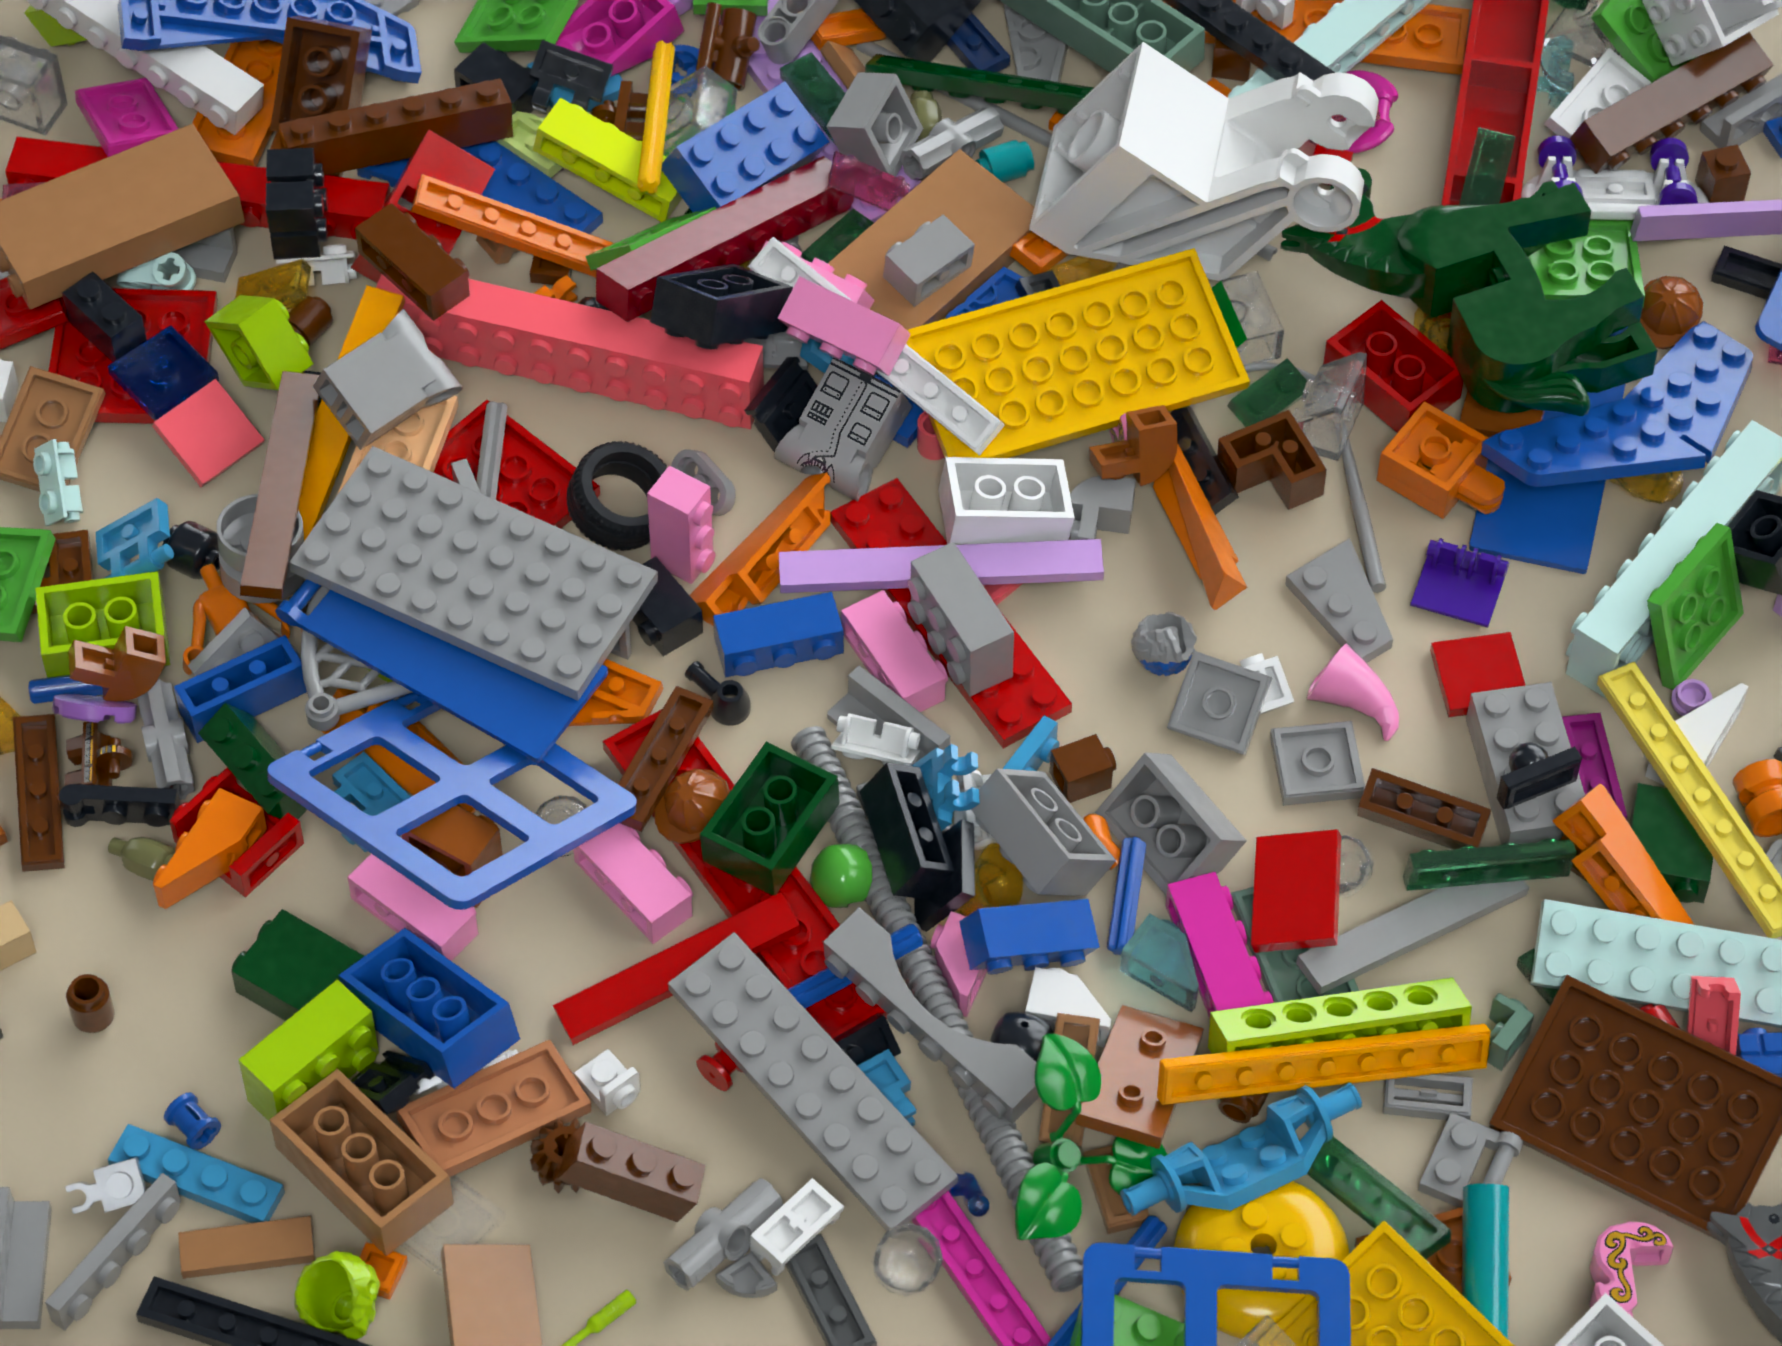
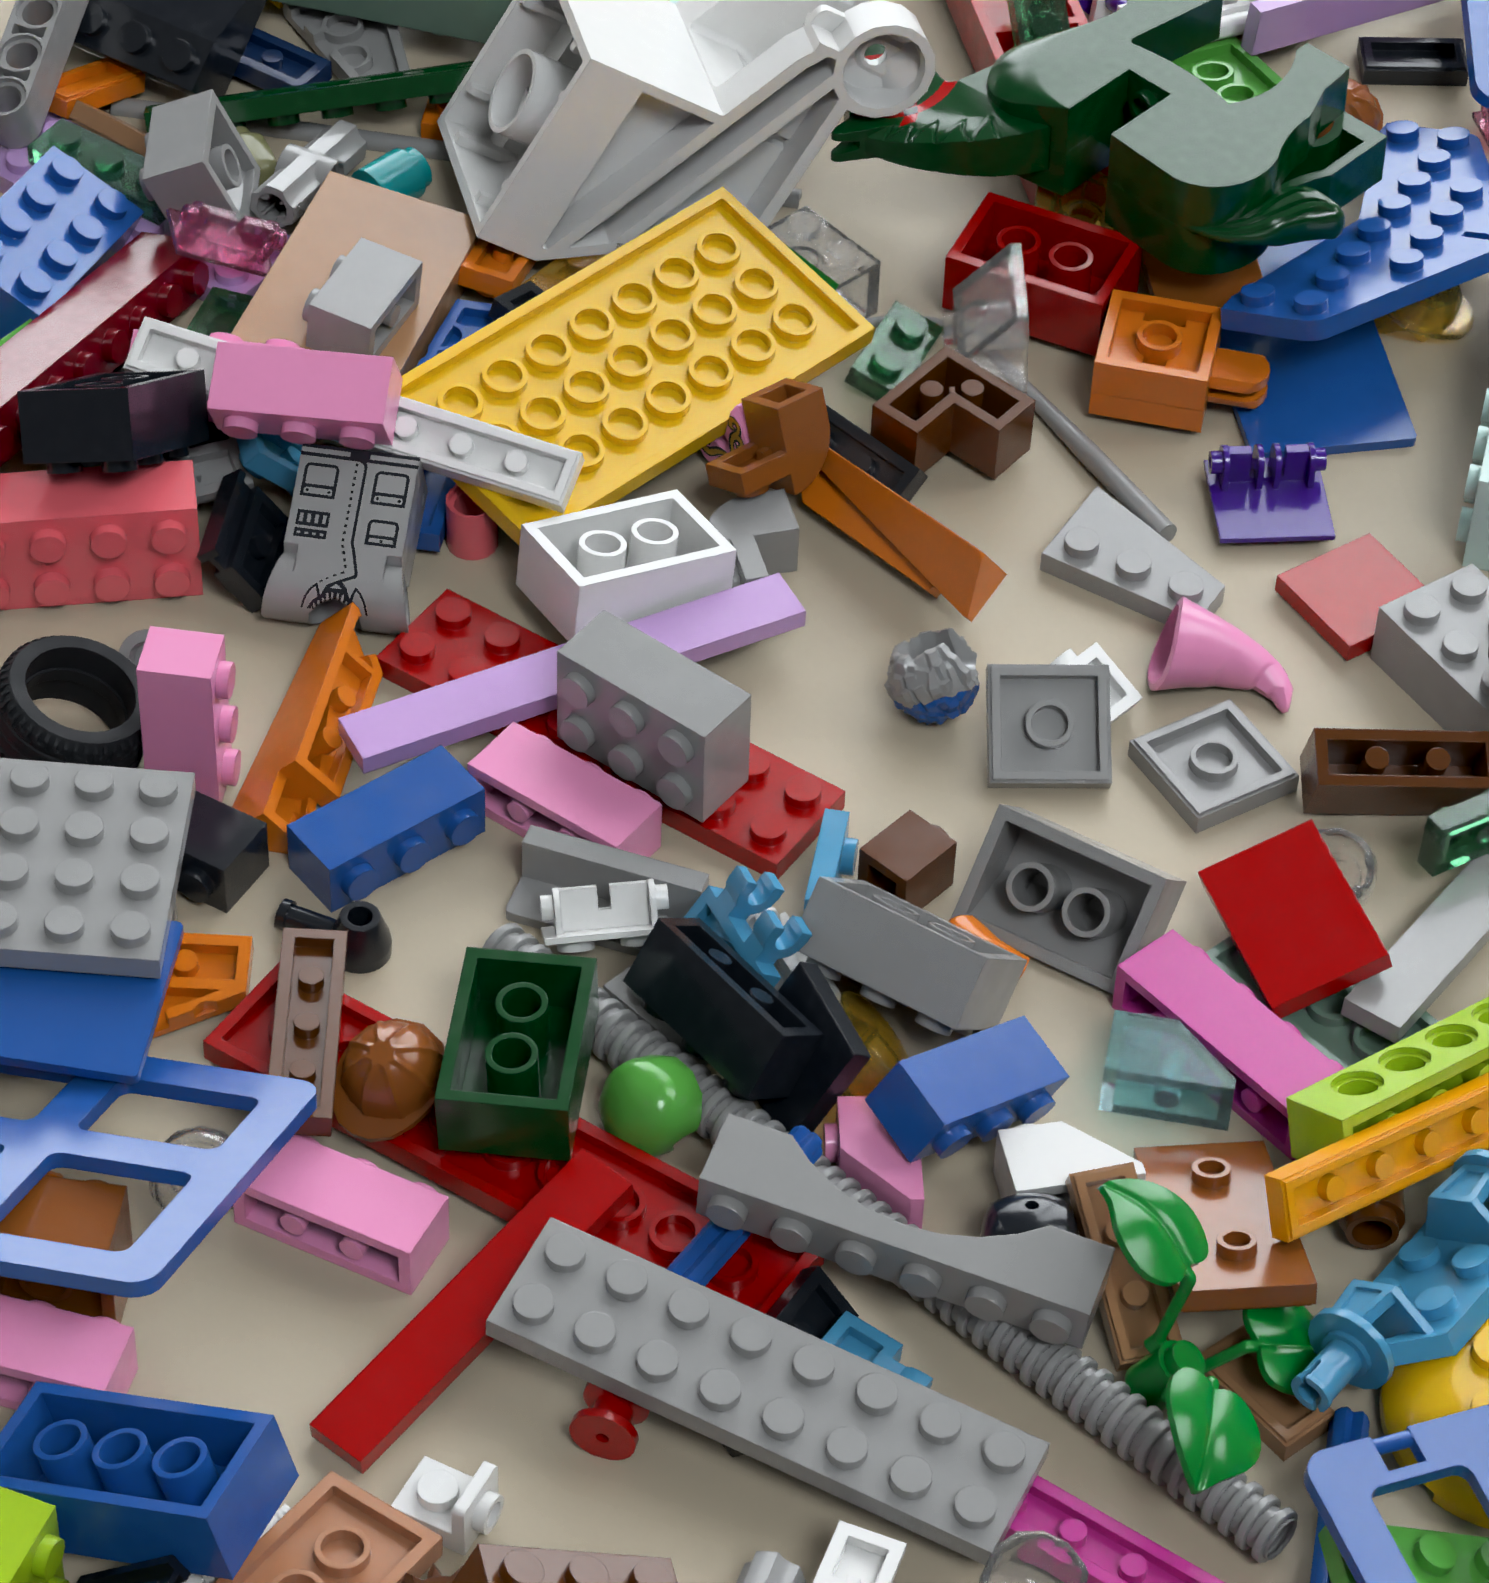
camera: 25 degrees left, 10 degrees down
(972, 1194) = (1075, 1473): clear blue arm -> none
(1126, 893) = (1060, 1006): blue axle -> none

